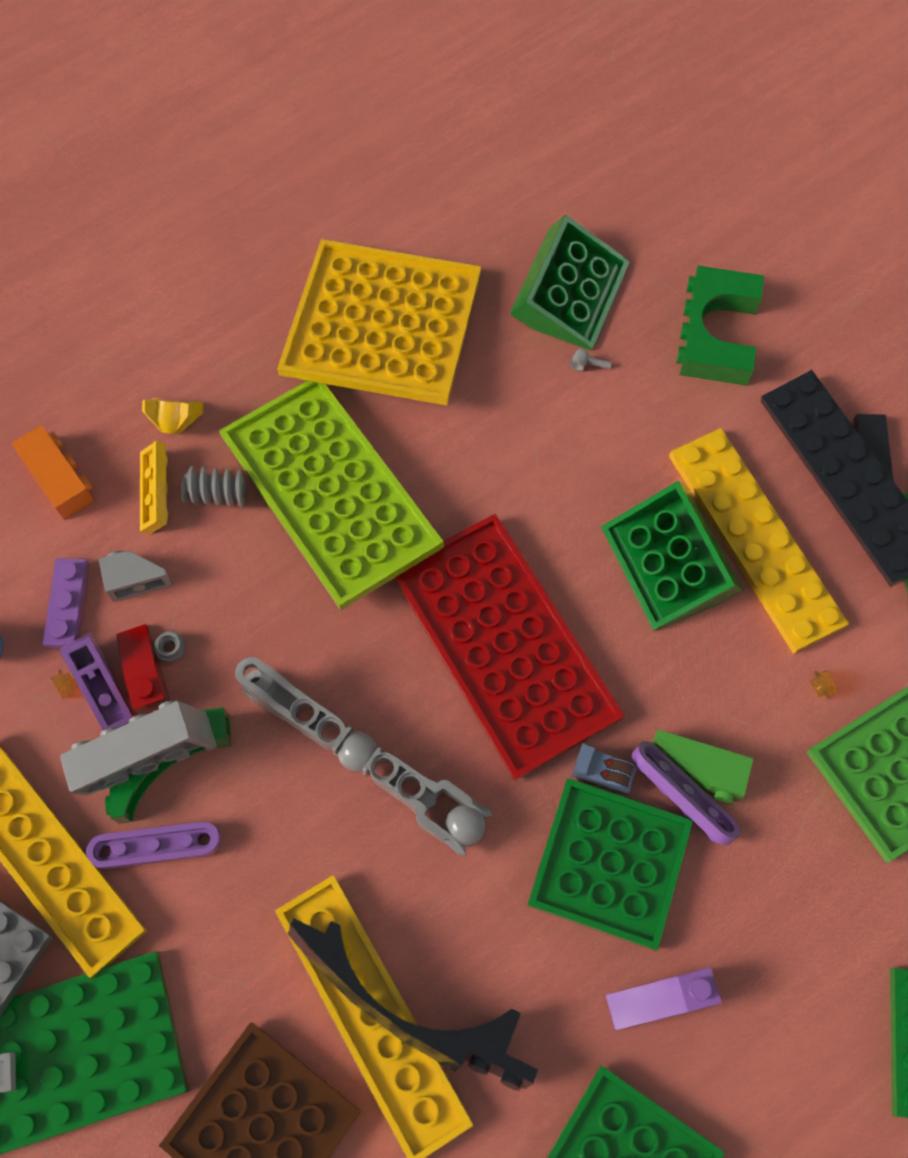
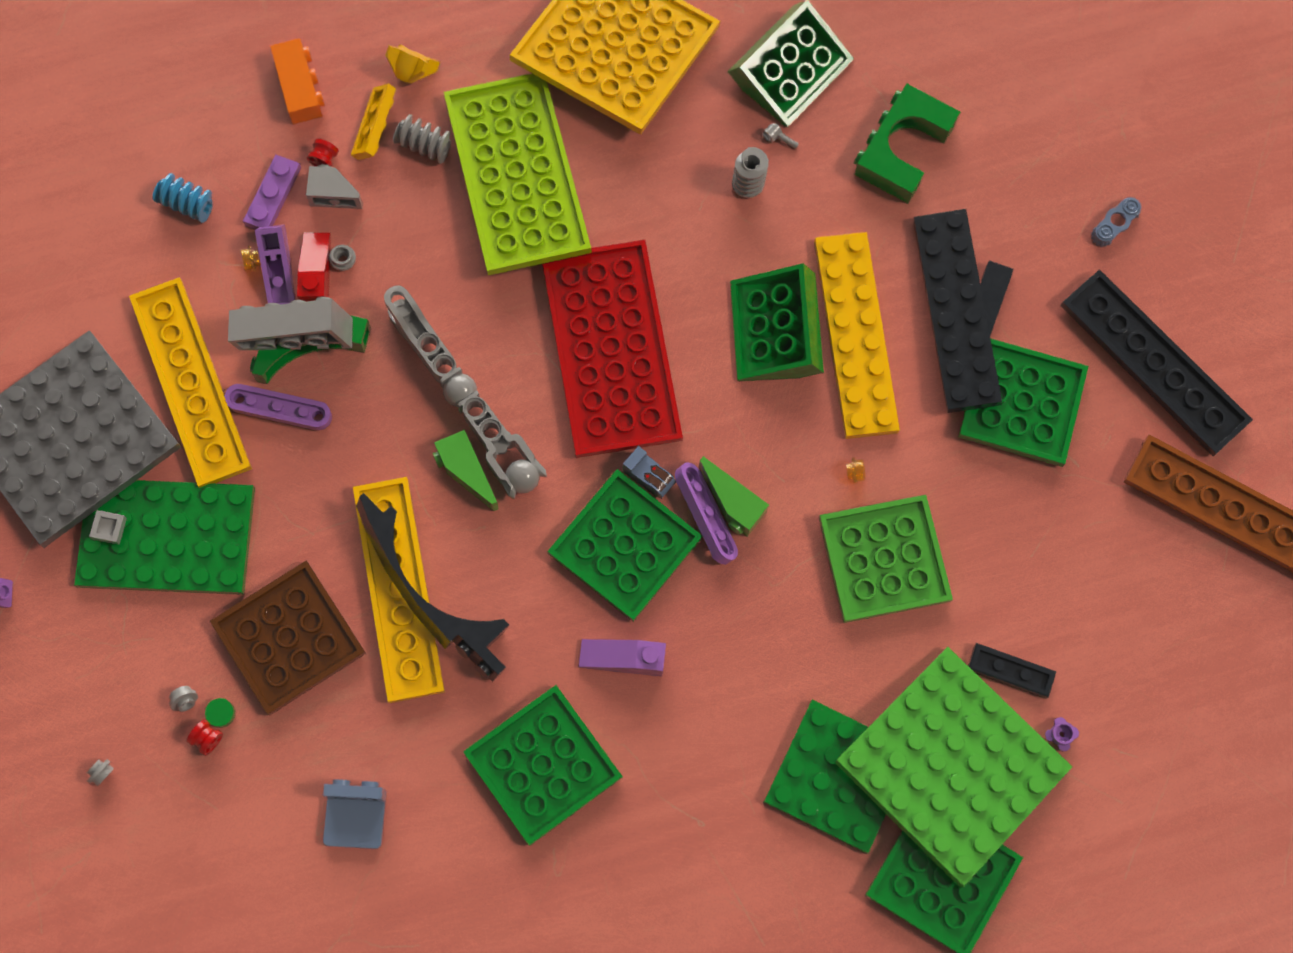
camera: 15 degrees right, 5 degrees up
(108, 539) = (322, 153): none -> red wheel
(392, 837) = (463, 466): none -> bright green slope
(579, 406) = (750, 172): none -> light grey piece

